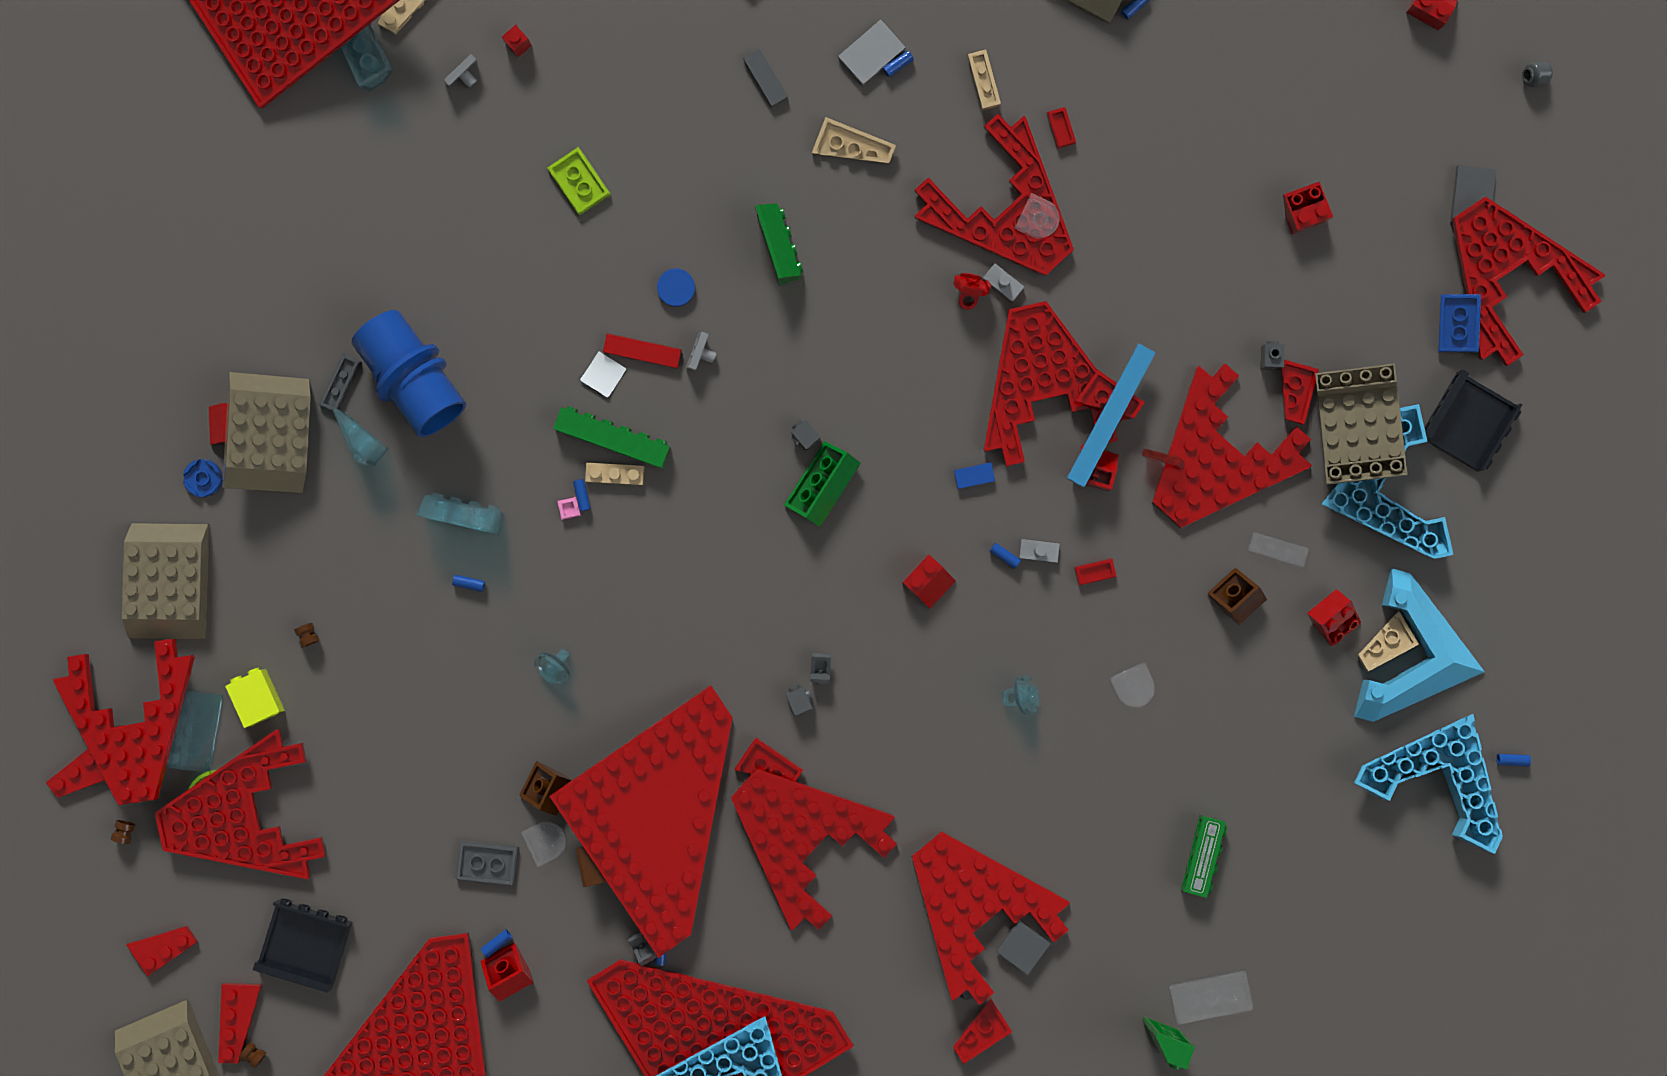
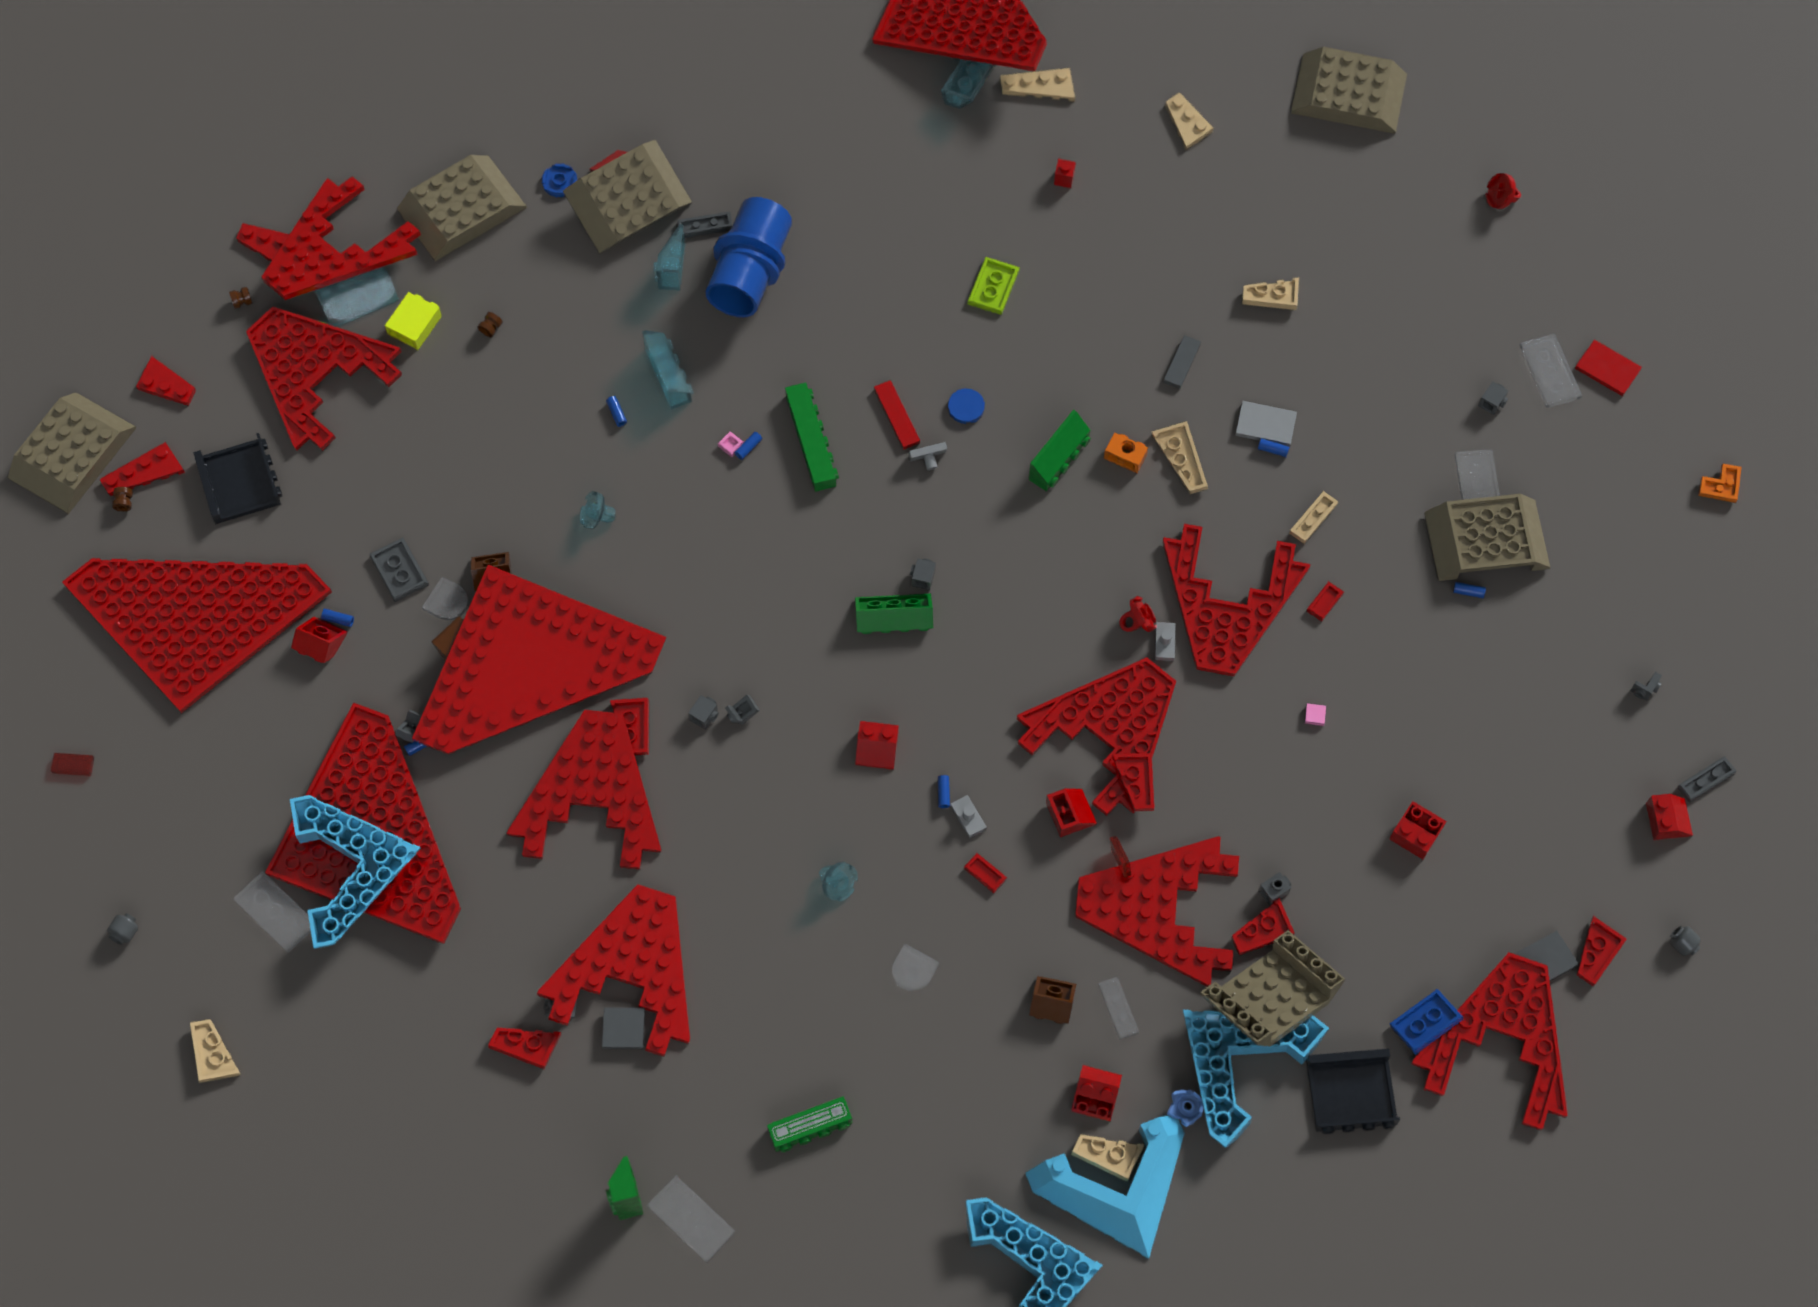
camera: 55 degrees right, 20 degrees down
(462, 73) = (1010, 152): light grey tile -> none
(603, 374) = (856, 400): white sticker -> none
(614, 473) = (783, 458): tan plate -> none
(808, 196) = (1130, 461): none -> orange brick
(974, 475) = (991, 724): blue tile -> none
(1038, 218) = (1237, 628): clear tile -> none
(1110, 415) = (1121, 786): dark azure tile -> none
(1151, 211) = (1315, 714): none -> bright pink tile
(1400, 561) = (1178, 1107): none -> medium blue piece
(1497, 146) = (1599, 950): none -> red wing

